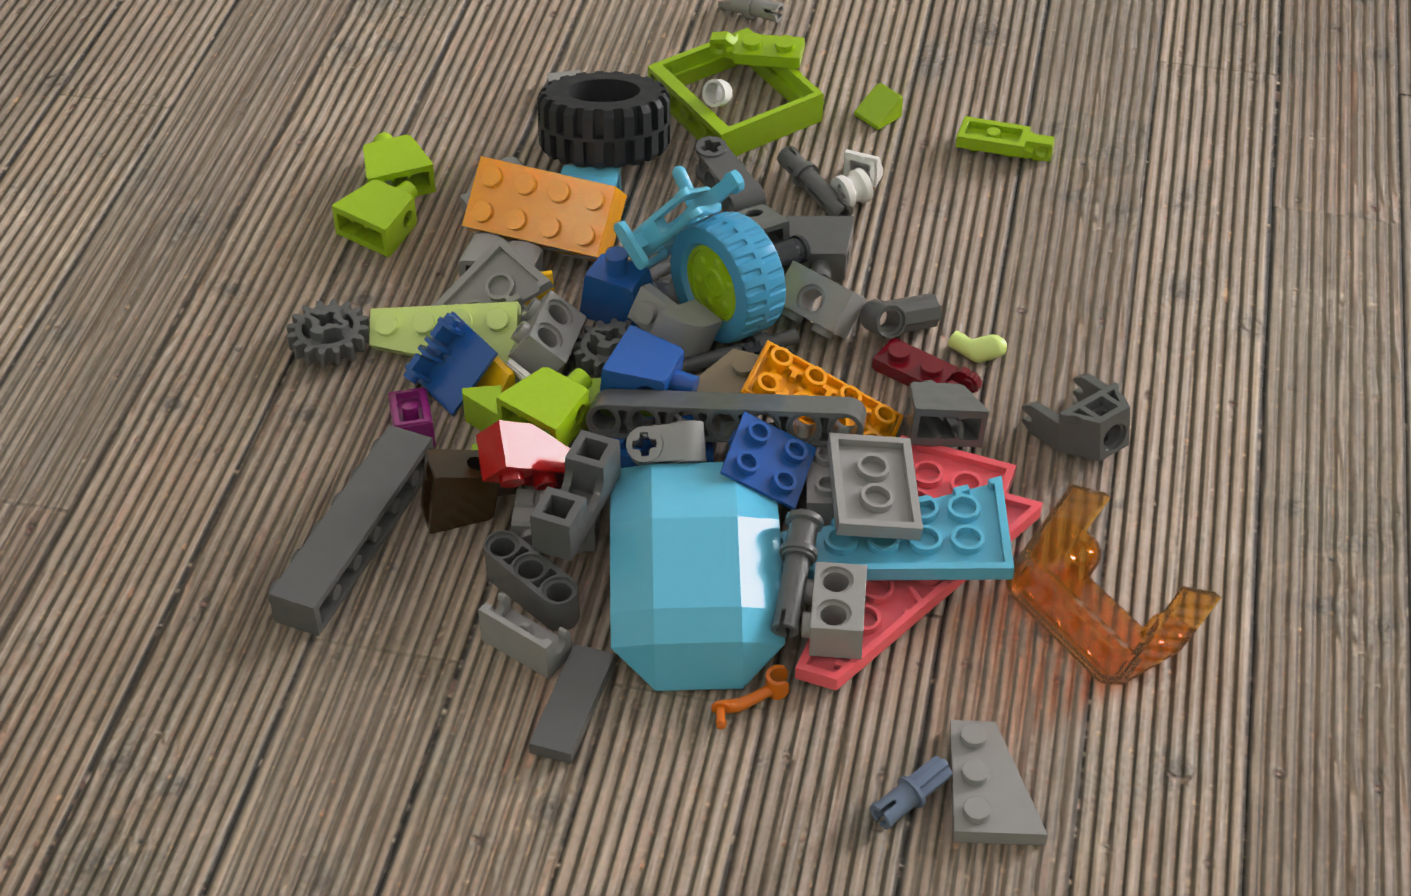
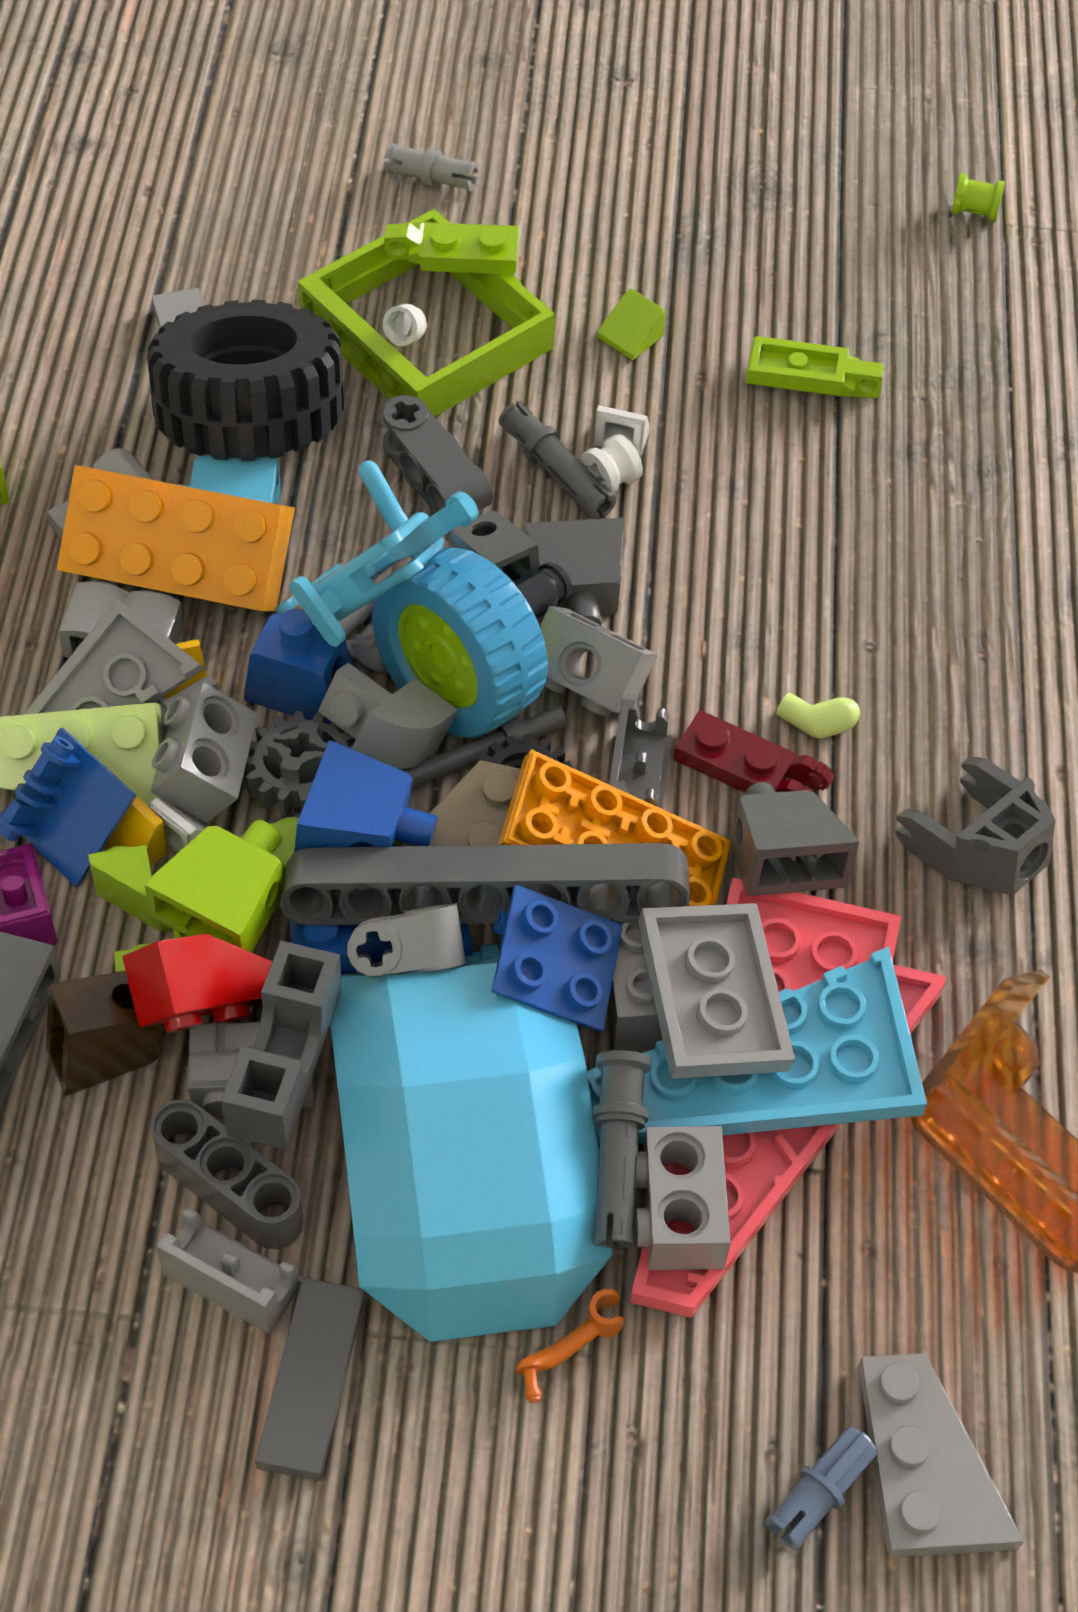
camera: 10 degrees left, 10 degrees up
(848, 358) = (641, 754): none -> dark grey hinge
(902, 315) = (699, 678): dark grey piece -> none
(1139, 40) = (978, 197): none -> lime bush

